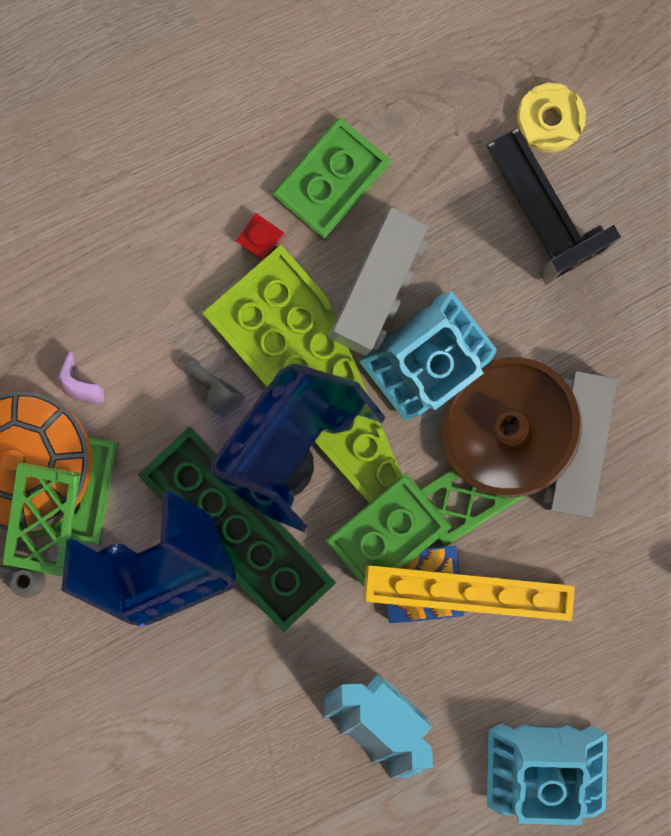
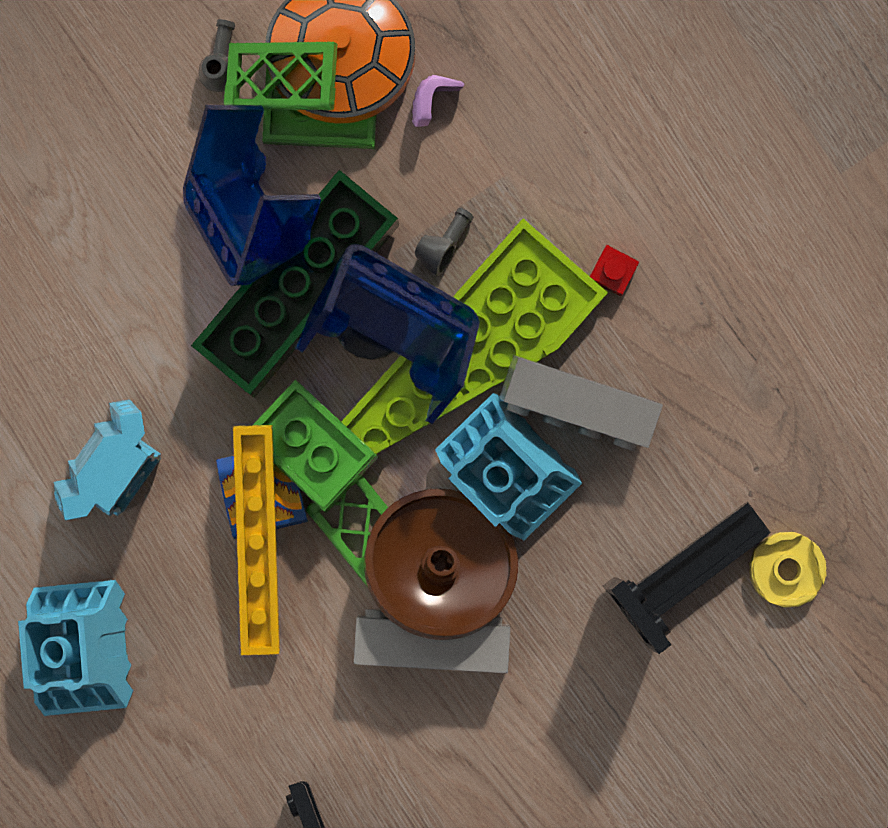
camera: 85 degrees right, 0 degrees up
(332, 178) = (688, 339): bright green tile -> none

